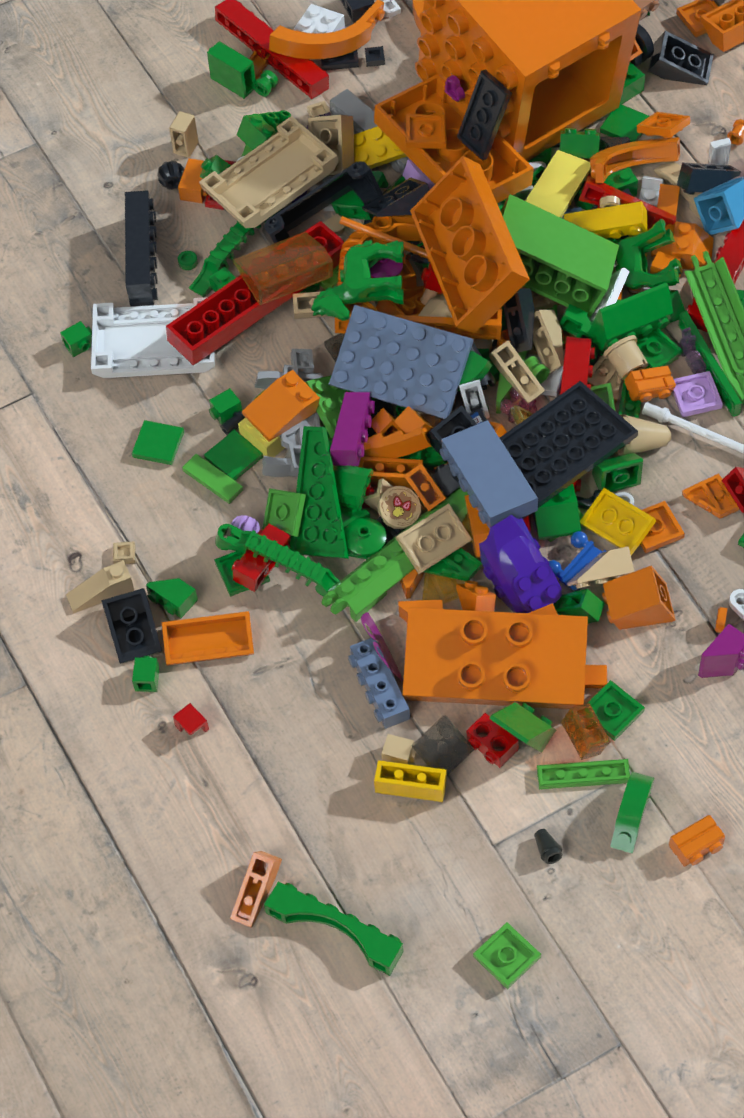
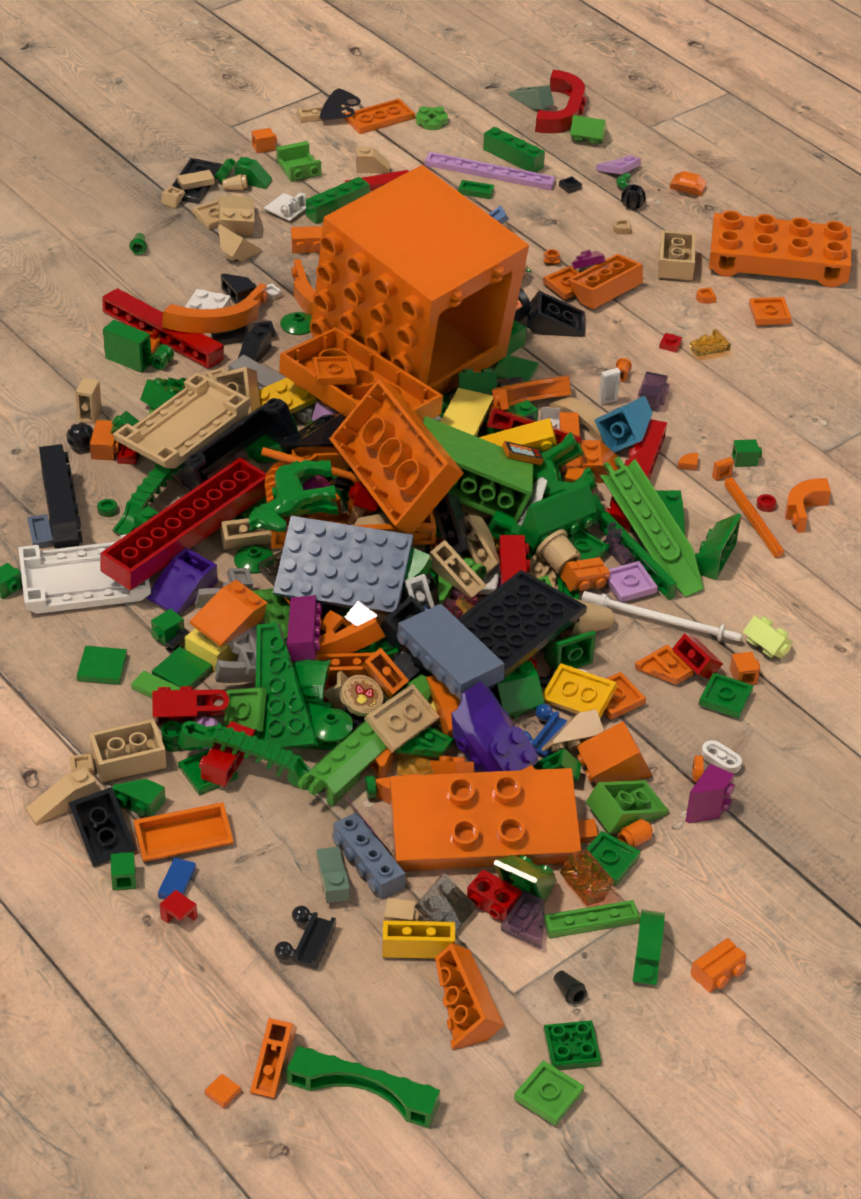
camera: 15 degrees left, 15 degrees down
(117, 283) = (40, 531): none -> sand blue tile
(167, 544) = (127, 750): none -> tan brick
(195, 687) = (177, 877): none -> blue tile
(205, 914) = (222, 1090): none -> orange tile
(209, 528) = (170, 733): none -> green wheel
(227, 500) = (187, 704): none -> red brick
(246, 355) = (182, 579): none -> dark purple slope
(284, 267) = (213, 496): clear orange slope -> none
(312, 768) = (313, 941): none -> black gear
(315, 335) = (250, 557): none -> green dish
(342, 699) = (333, 875): none -> sand green slope
(362, 75) = (256, 343): none -> black slope
(393, 607) = (370, 787): none -> green tile
(406, 48) = (296, 323): none -> green dish
(446, 847) = (467, 998): none -> orange wedge
(454, 89) = (354, 334): magenta tile -> none
(484, 114) = (391, 345): black tile -> none
(519, 770) = (526, 920): none -> wing
(539, 907) = (572, 1045): none -> green tile
(608, 201) = (517, 421): tan tile -> none
(608, 239) = (522, 453): none -> tile
(641, 653) = (623, 803): none -> bright green slope
(644, 686) = (636, 833): none -> orange brick
(663, 124) = (552, 366): orange plate -> none
(703, 177) = (598, 402): black slope -> none

